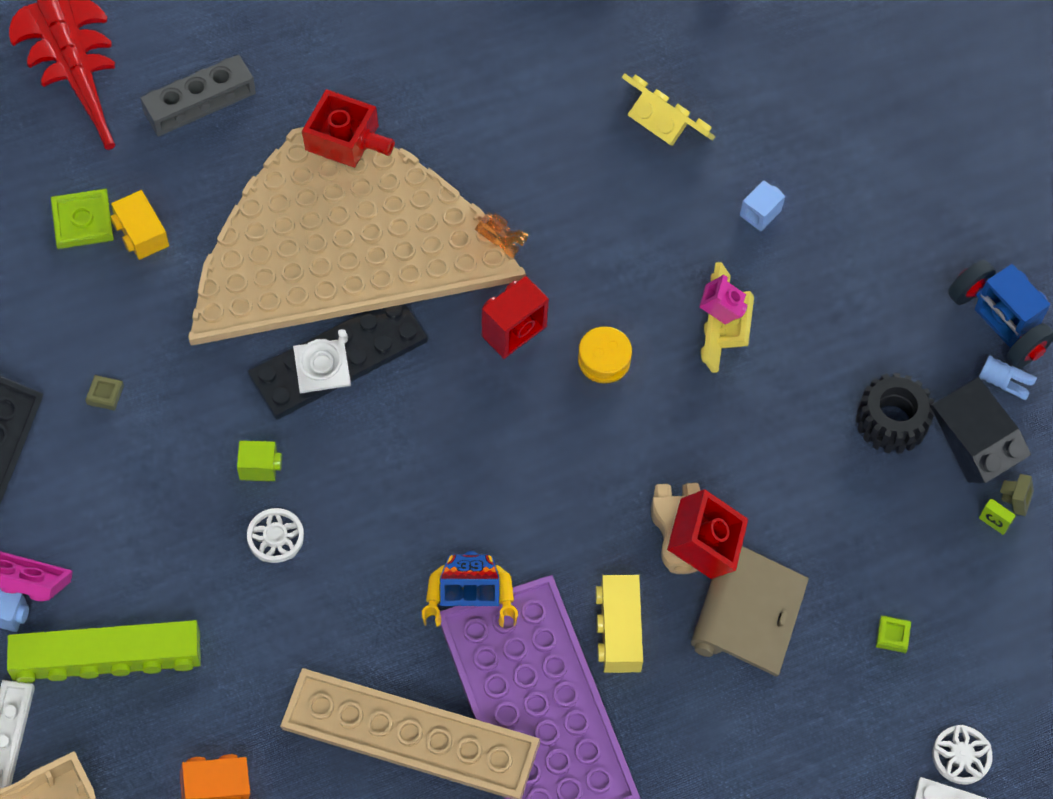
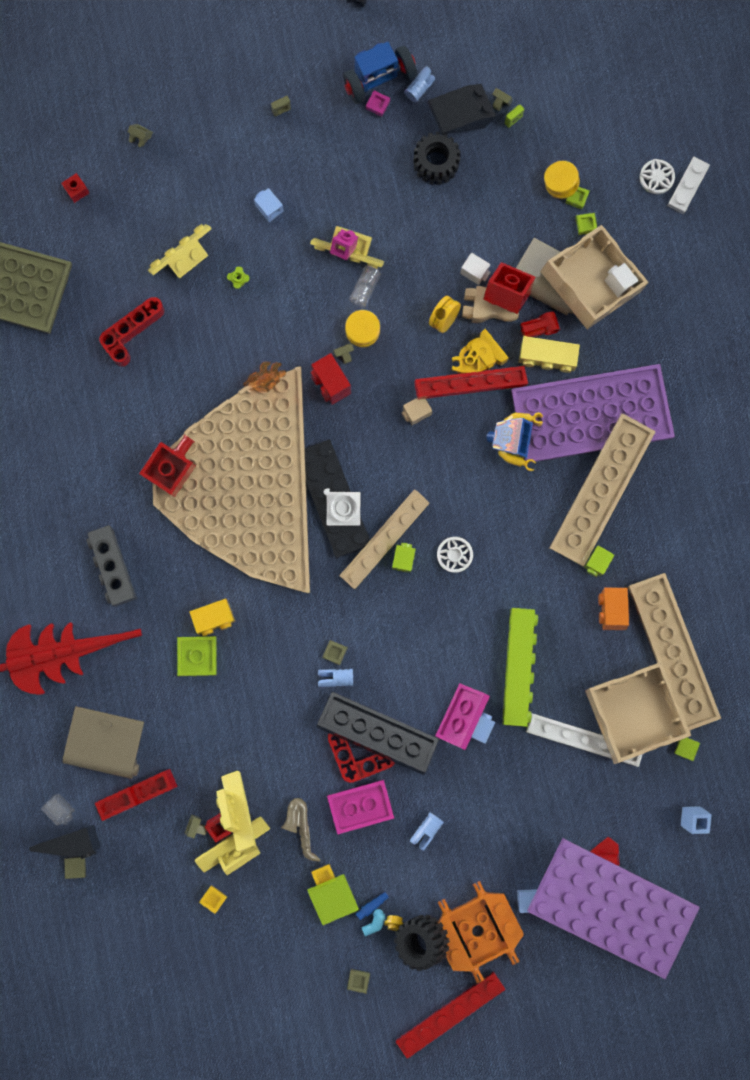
camera: 80 degrees left, 20 degrees up
(65, 399) = (340, 677): none -> light blue hinge
(285, 431) = (384, 539): none -> tan plate
(291, 748) = (598, 561): none -> lime brick
(492, 445) = (416, 411): none -> tan brick
(529, 54) = (134, 329): none -> red beam
(549, 511) = (470, 382): none -> red plate
(561, 335) = (344, 352): none -> olive tile
(597, 522) = (482, 355): none -> yellow piece
(645, 192) = (237, 283): none -> lime plate
(649, 457) = (444, 314): none -> yellow head
(667, 611) = (545, 324): none -> red piece
(670, 348) = (365, 286): none -> clear pin
(736, 490) = (475, 269): none -> white brick
(760, 667) = (580, 276): none -> tan tile
(766, 711) = (620, 279): none -> white brick
(824, 36) = (140, 132): none -> olive tile
(852, 654) = (586, 223): none -> lime tile
(912, 600) = (561, 179): none -> yellow head
(916, 199) = (280, 106): none -> olive tile
(959, 324) = (377, 103): none -> dark pink plate

